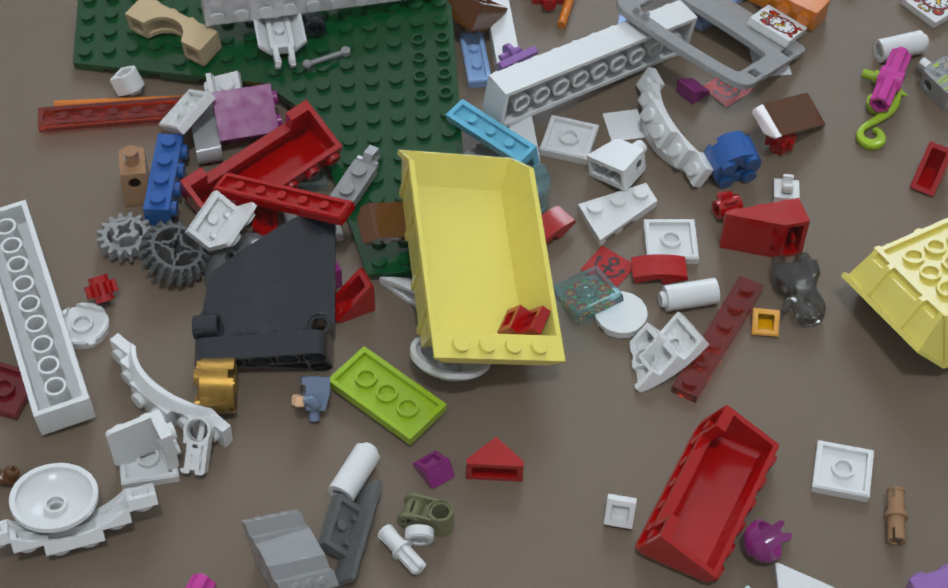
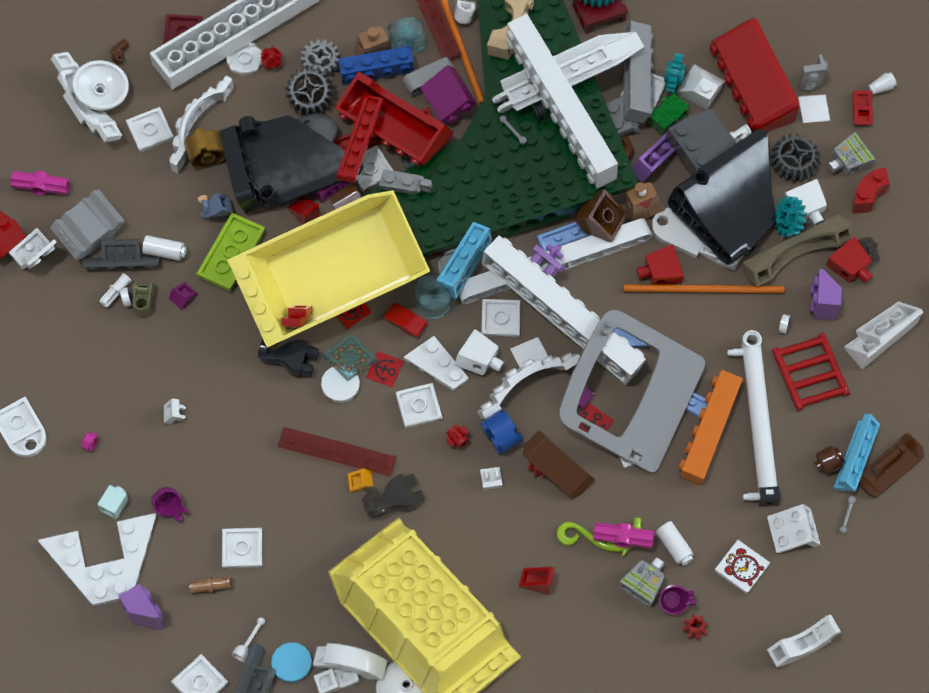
camera: 75 degrees right, 15 degrees up
(140, 131) = (407, 33): none -> clear light blue brick
(142, 437) = (151, 127): white bracket -> none
(186, 111) = (434, 56): white tile -> none
(197, 450) = (157, 153): white piece -> none
(220, 222) = (330, 106): white bracket -> none
(223, 82) = (470, 72): white bracket -> none
(495, 463) = (193, 328): red slope -> none
(580, 355) = (291, 357): none -> black hips
(659, 266) = (387, 401): red slope -> none
(664, 352) = (312, 416): white slope -> none
(689, 294) = (366, 424): white brick -> none
(708, 496) = (192, 463): red windscreen -> none
(766, 229) = (439, 473): red slope -> none
(776, 26) = (665, 444): white tile -> none

